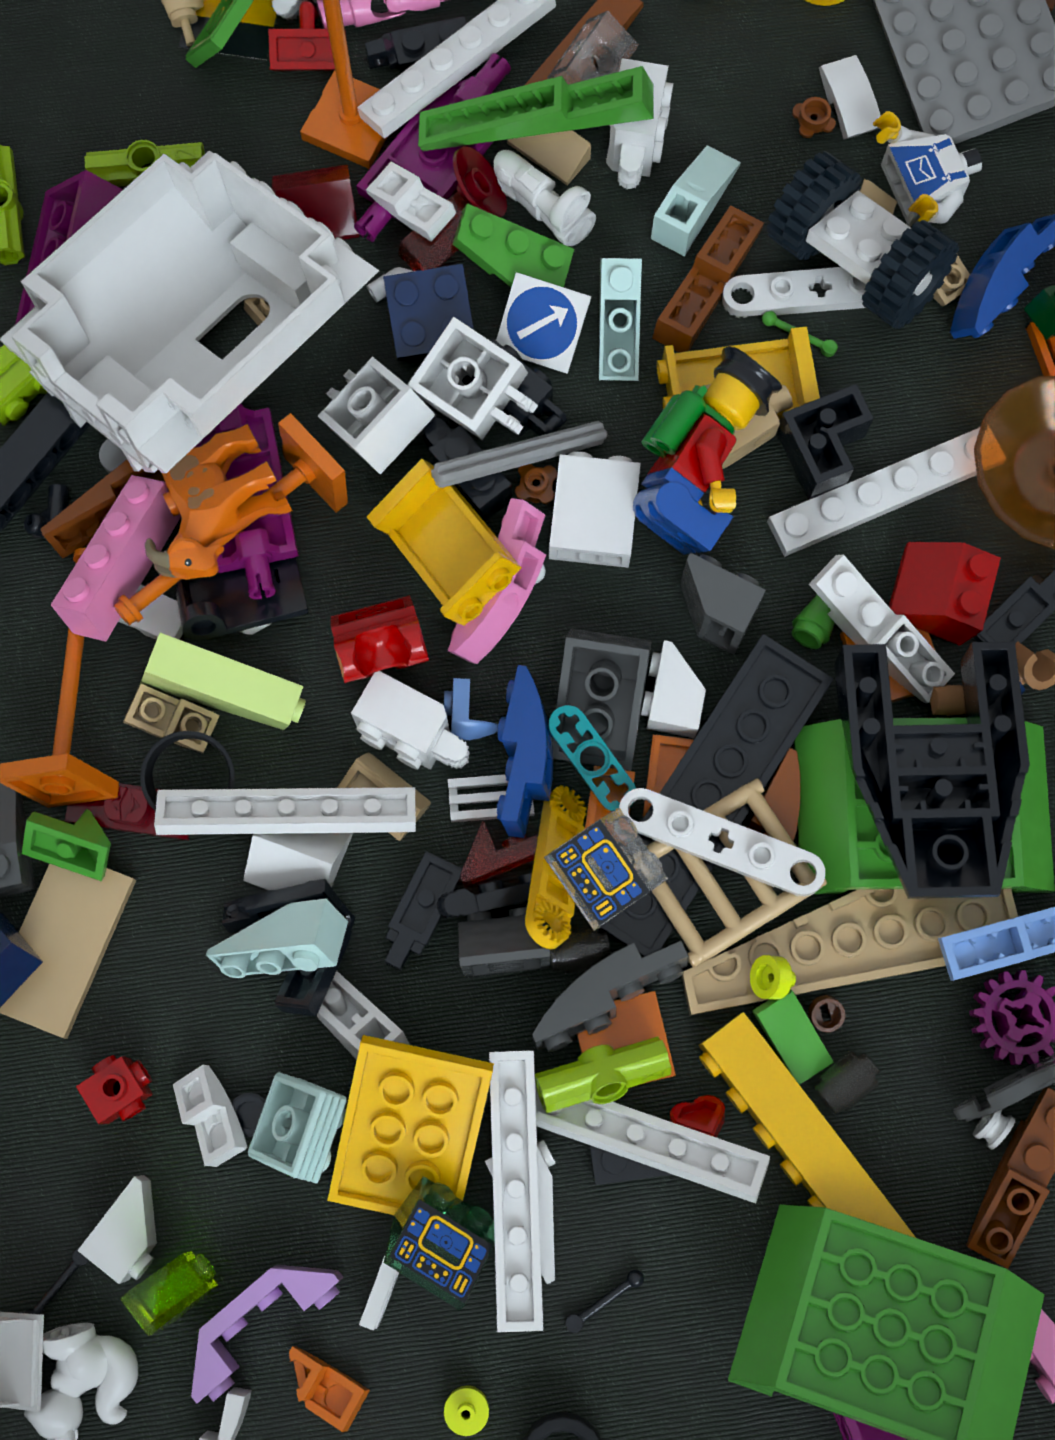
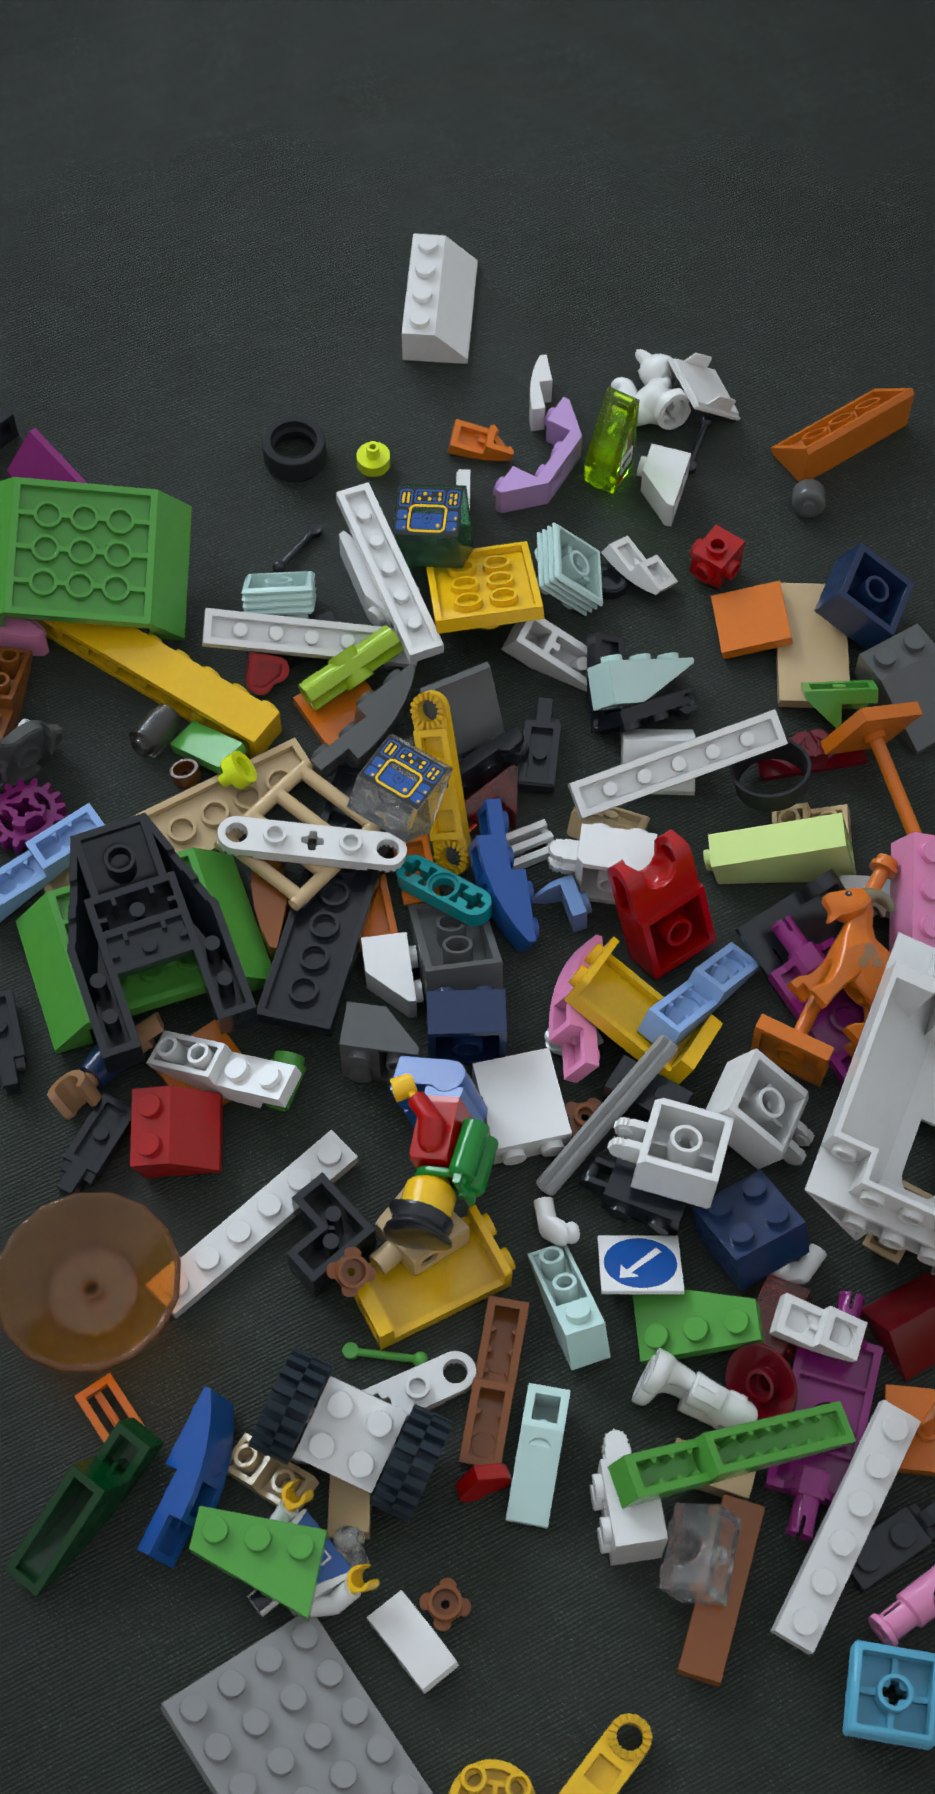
camera: 160 degrees right, 15 degrees down
(113, 994) = (751, 620): none -> orange tile
(377, 554) = (699, 996): none -> light blue slope
(609, 393) = (553, 1228): none -> white arm
(622, 594) = (467, 1024): none -> dark blue brick
(654, 1214) = (280, 593): none -> light aqua brick
(750, 192) = (482, 1480): none -> red tile
(817, 381) = (363, 1271): none -> dark orange plate
(885, 170) = (349, 1542): none -> clear arm
(965, 177) = (264, 1553): none -> bright green wing

